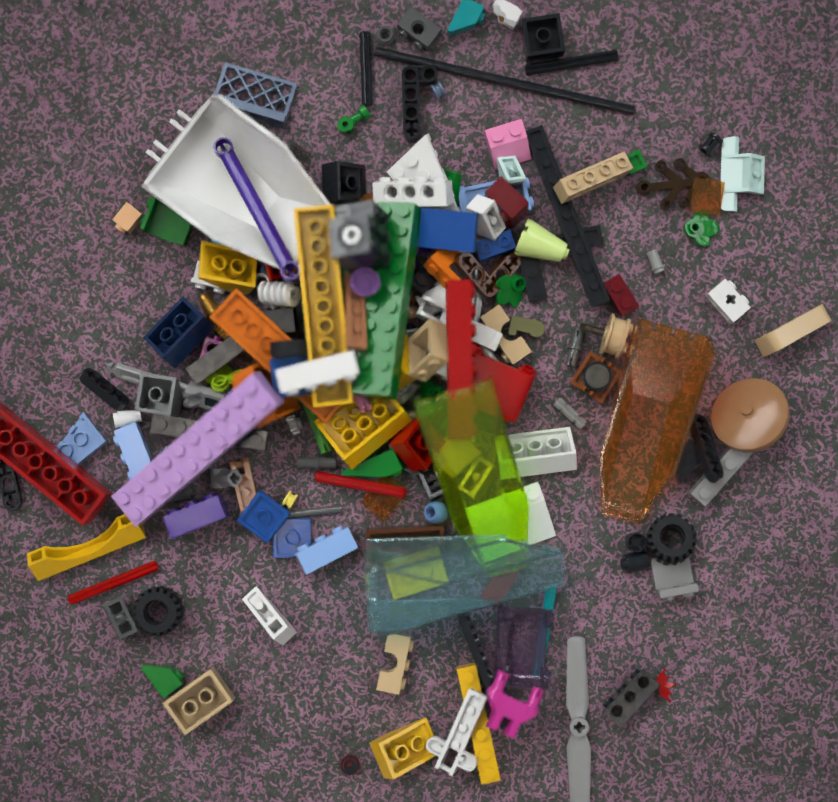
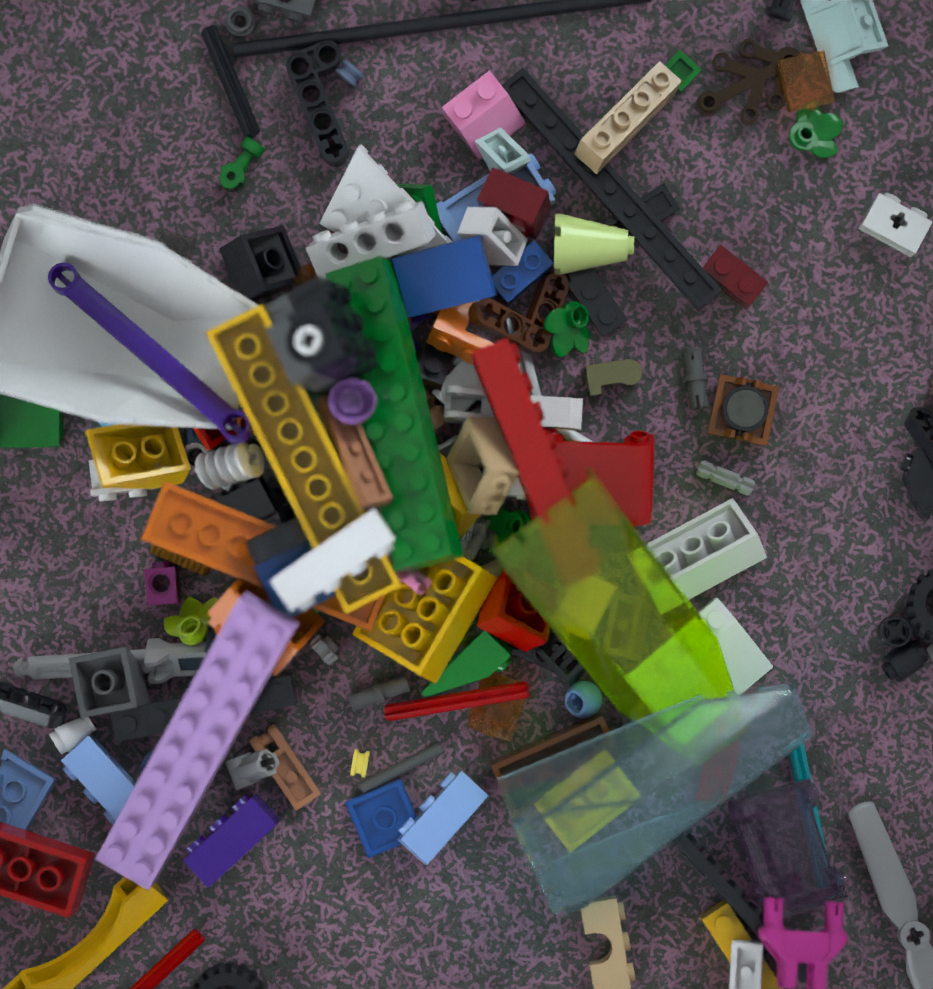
camera: 20 degrees left, 0 degrees up
(178, 332) = (102, 577): dark blue brick -> none
(185, 495) = (205, 812): dark grey cone -> none
(208, 305) = (131, 521): pearl gold cone -> none
(214, 360) = (170, 599): tile -> none
(256, 112) = (85, 207): sand blue fence -> none
(263, 516) = (330, 802): blue tile -> none
(269, 616) = (395, 947): white slope -> none
(318, 435) = (367, 652): bright green axle -> none
(512, 350) = (605, 417): tan arch -> none
(613, 335) = (746, 340): tan wheel -> none
(651, 416) = (847, 437): clear orange windscreen -> none
(655, 261) = (767, 206): light grey pin -> none

